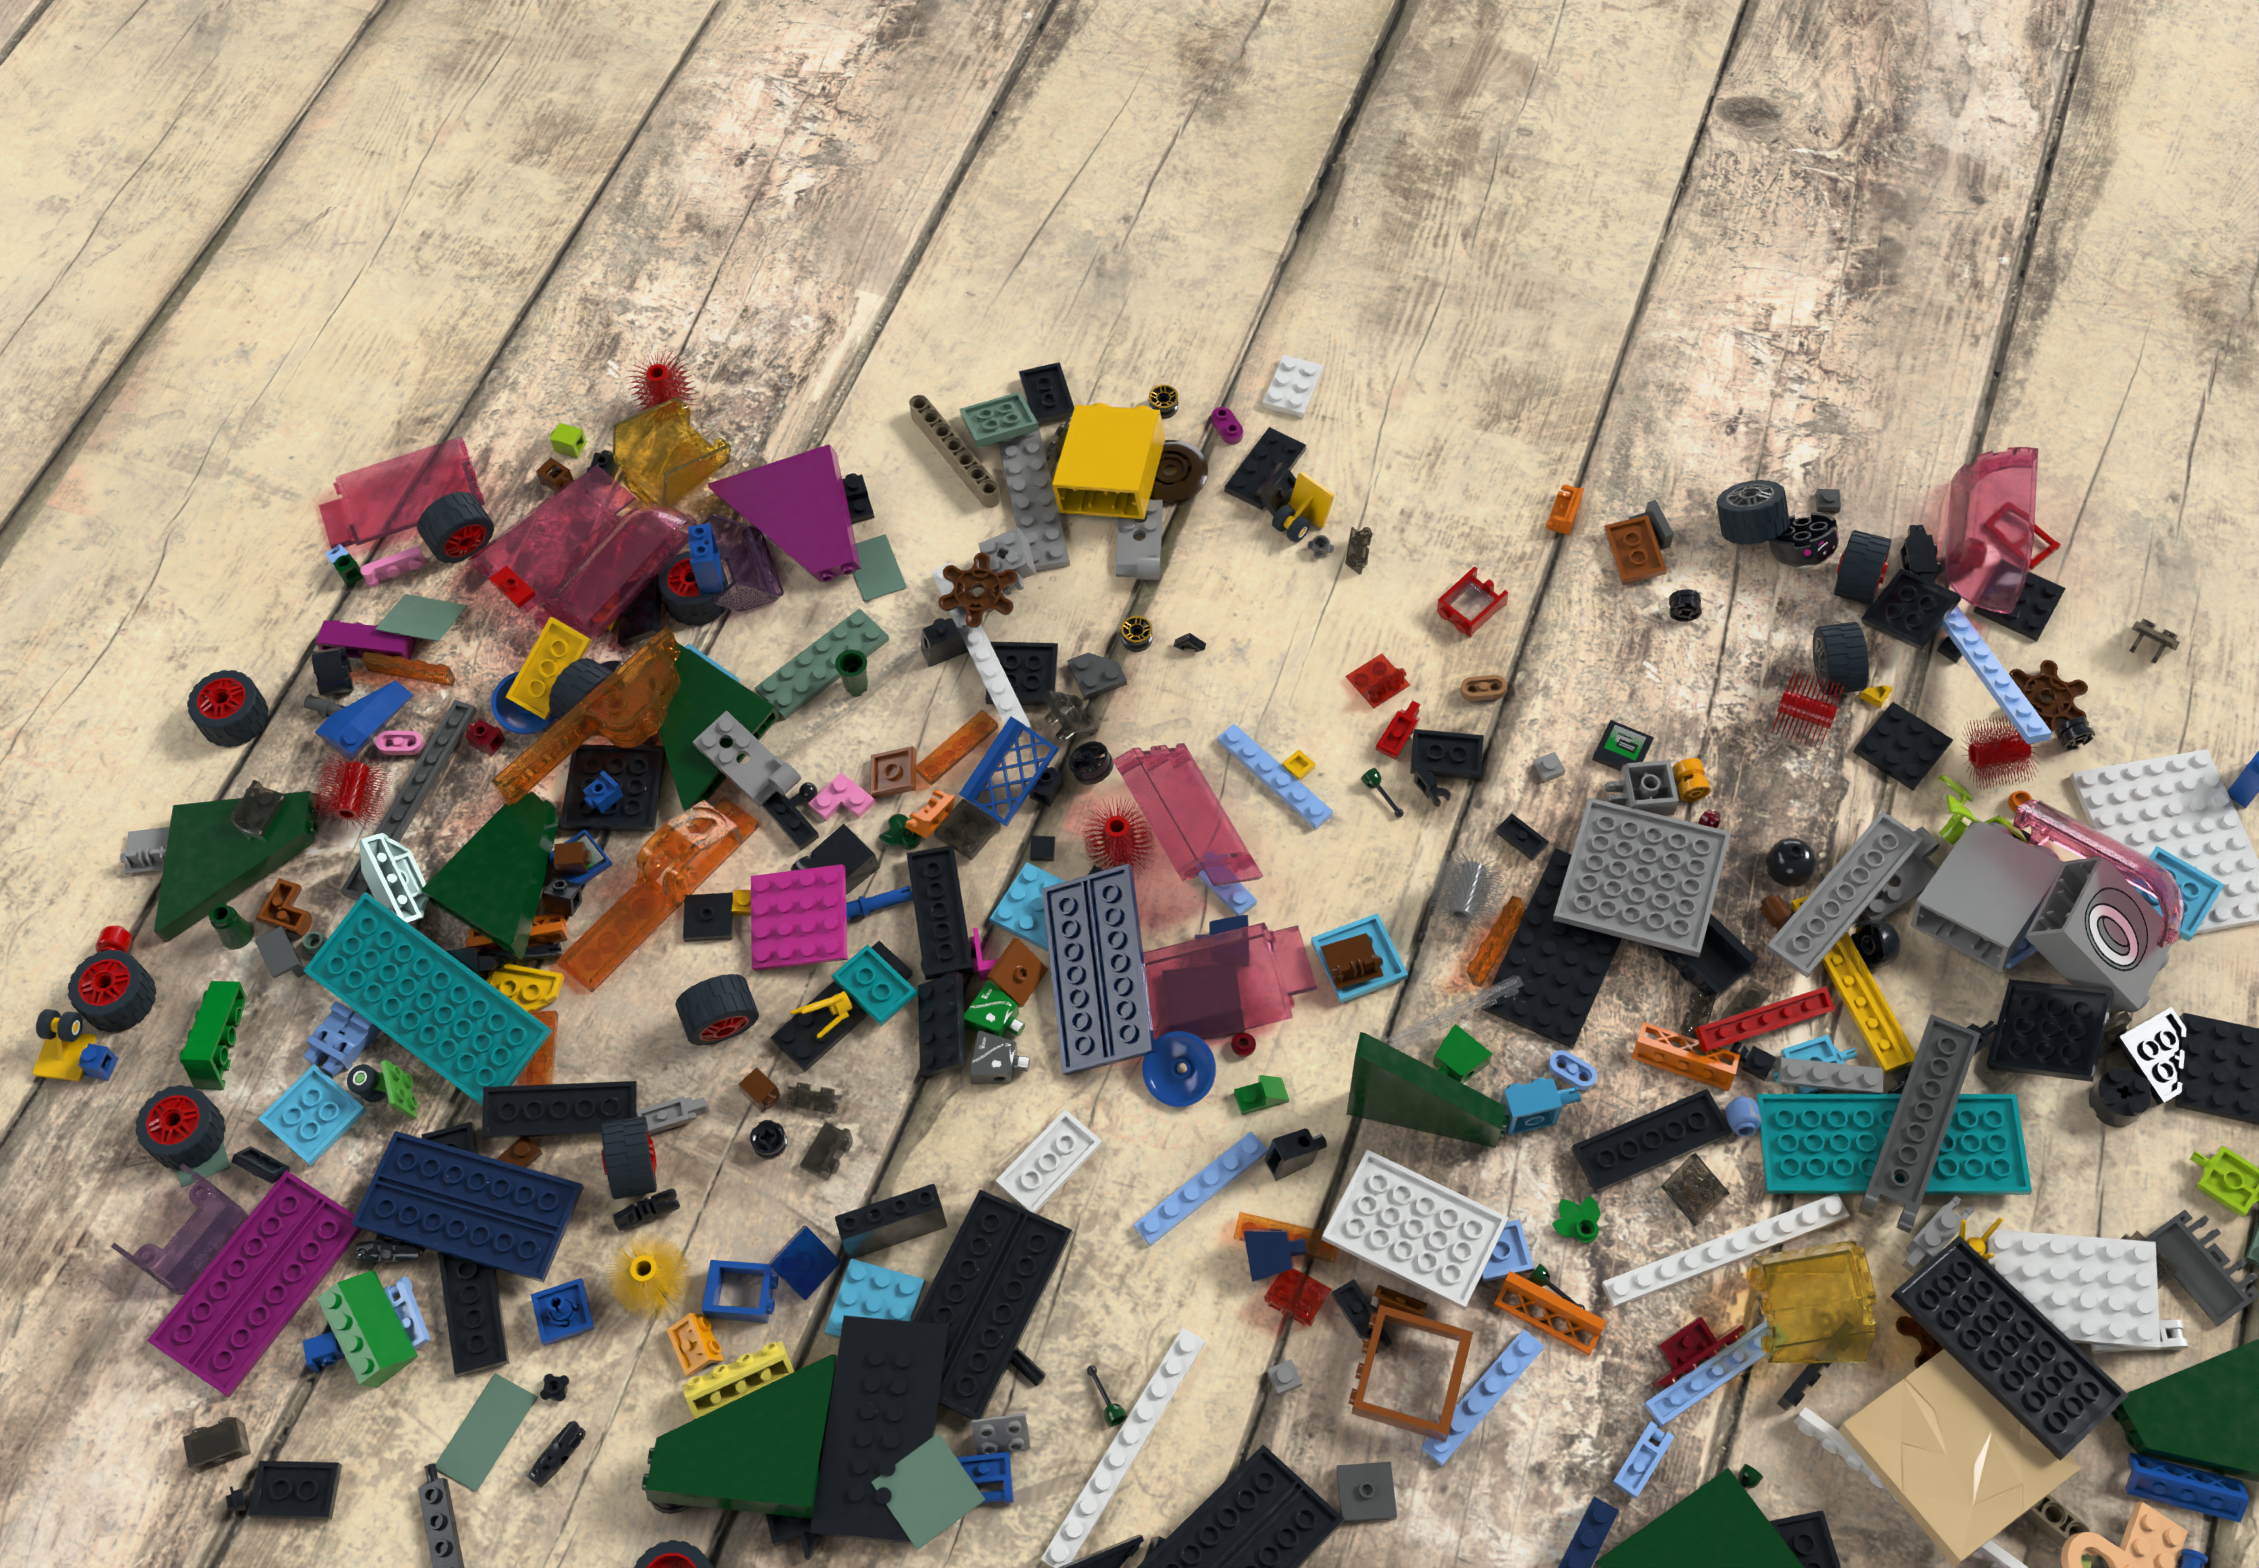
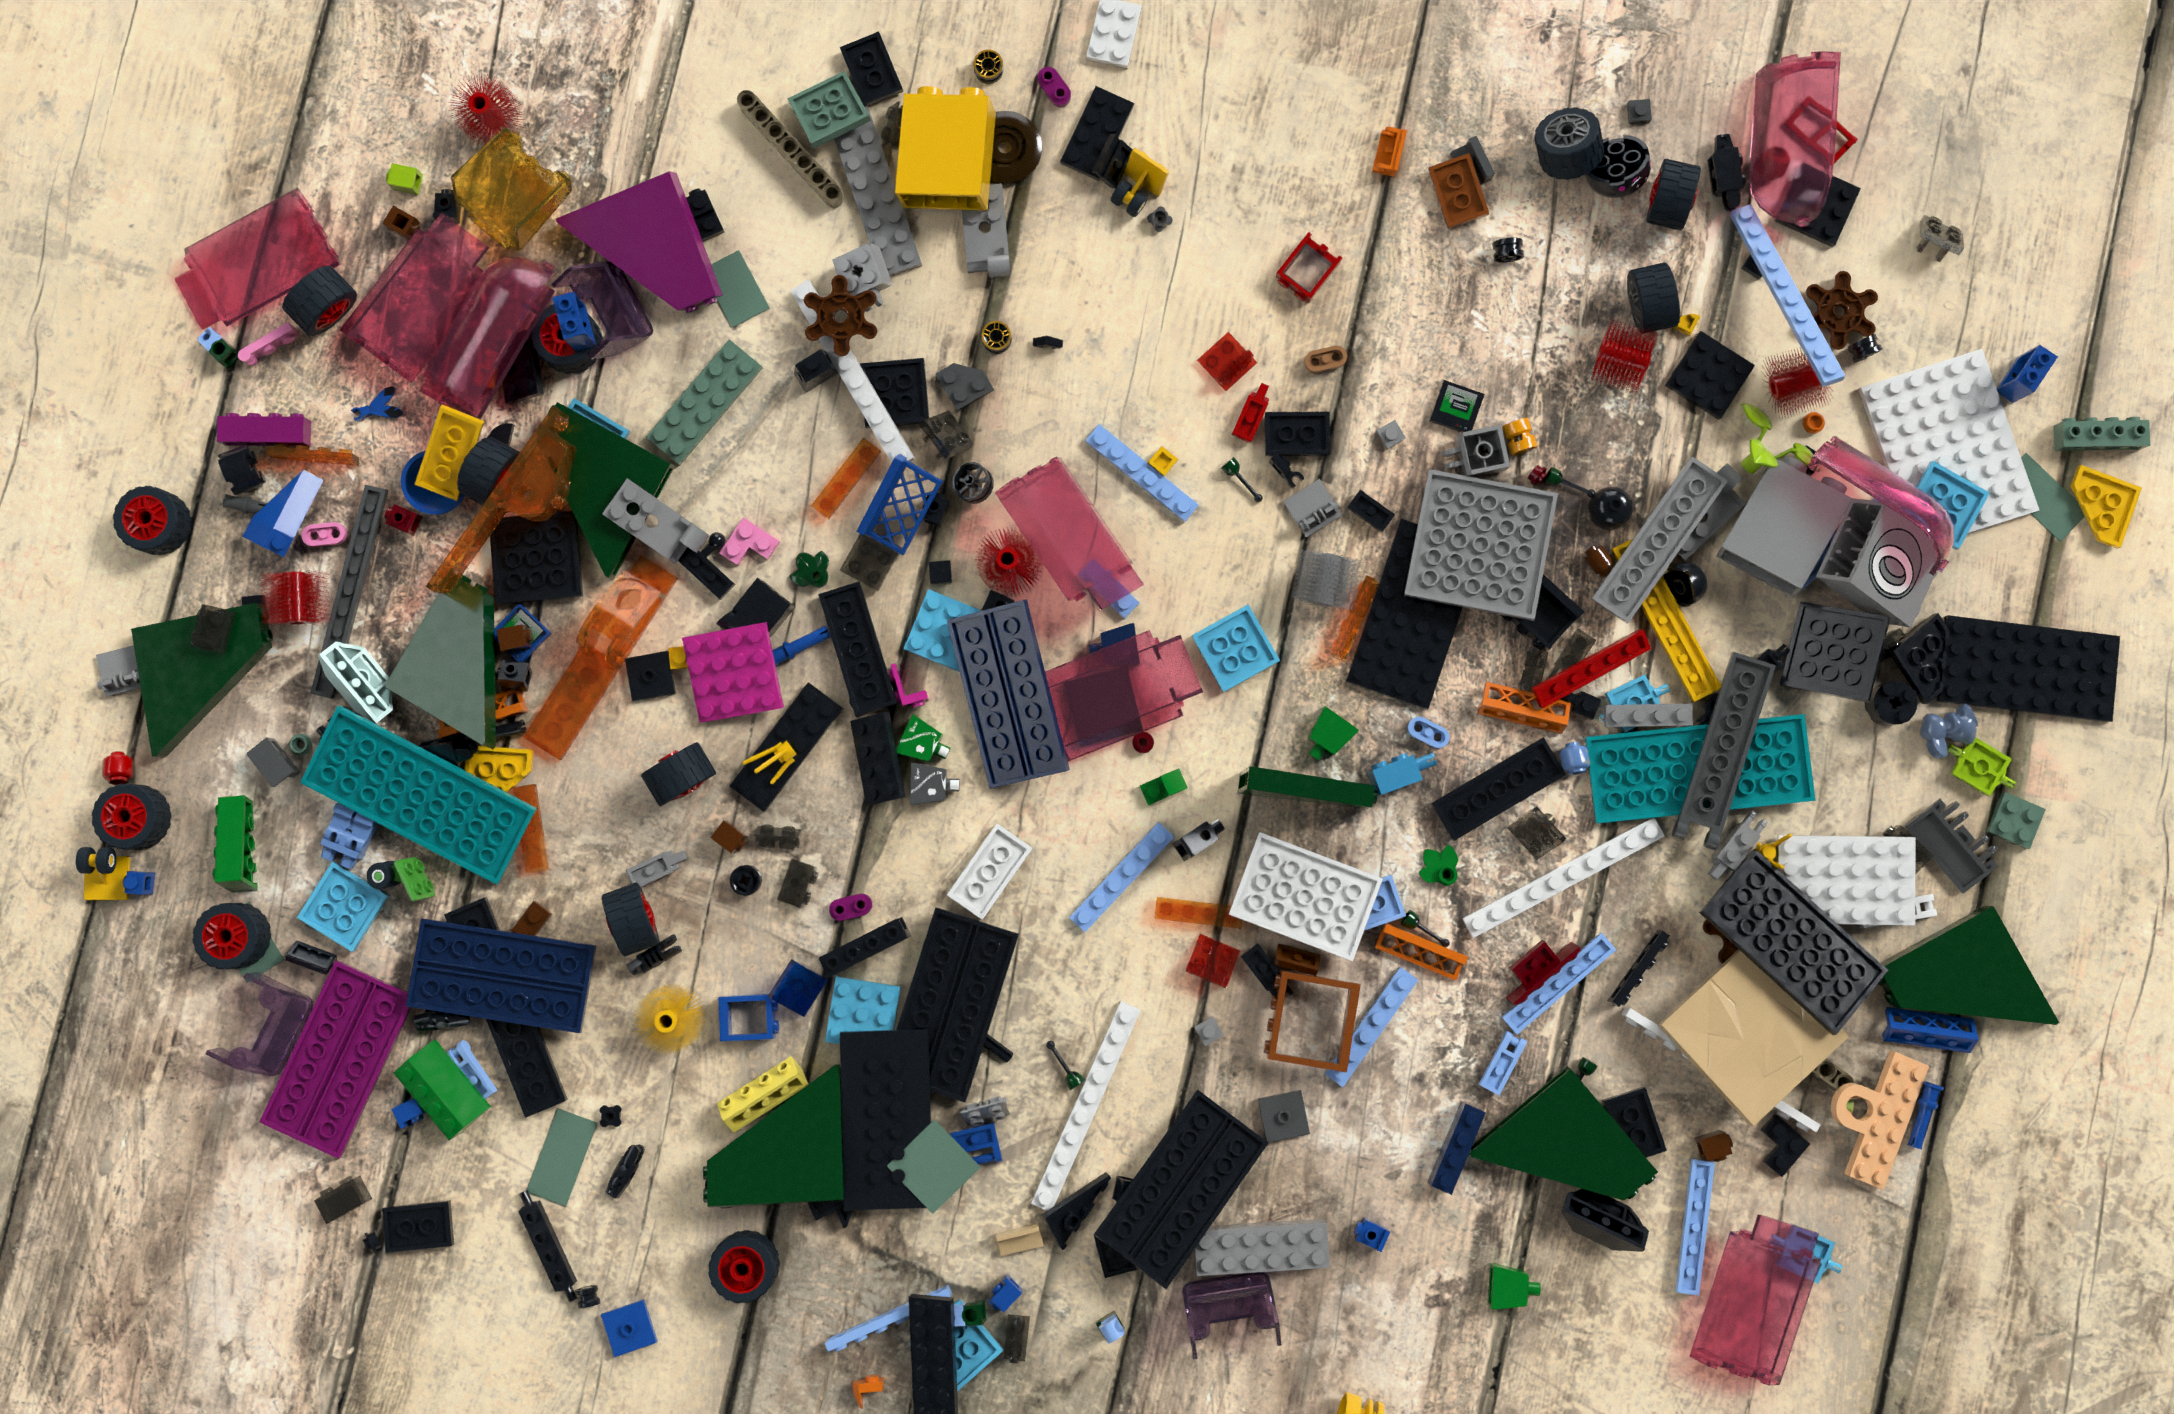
camera: 10 degrees left, 25 degrees up
(231, 927) = (222, 741): dark green plant -> none
(279, 909) = (257, 717): dark orange brick -> none
(421, 617) = (310, 399): sand green piece -> none
(487, 635) = (378, 406): none -> blue piece
(512, 586) = (392, 363): red plate -> none
(555, 1108) = (559, 878): black plate -> none
(560, 1303) = (594, 1055): blue plate -> none
(602, 793) = (535, 569): blue brick -> none
(694, 1343) = (719, 1065): light orange bracket -> none
(853, 671) = (731, 410): dark green plant -> none
(874, 985) = (812, 728): teal tile -> none
(882, 1184) = (850, 907): none -> magenta plate
(893, 772) = (791, 512): dark orange plate -> none
(931, 815) = (834, 553): orange hinge -> none
(1017, 972) = (937, 702): dark orange plate -> none
(1163, 1072) = (1088, 787): blue dish -> none
(1271, 1251) = (1187, 931): dark blue torso -> none
(1352, 961) = (1230, 656): reddish brown hinge -> none
(1357, 549) = (1195, 225): clear smoke hinge -> none
(1458, 828) = (1312, 508): none -> light grey hinge
(1461, 1009) = (1328, 691): clear plate -> none
(1731, 825) = (1555, 477): none -> hinge
(1816, 1303) = (1637, 923): clear yellow windscreen -> none
(1911, 609) = (1718, 232): black plate -> none
(2201, 1130) = (1956, 726): none -> sand blue animal

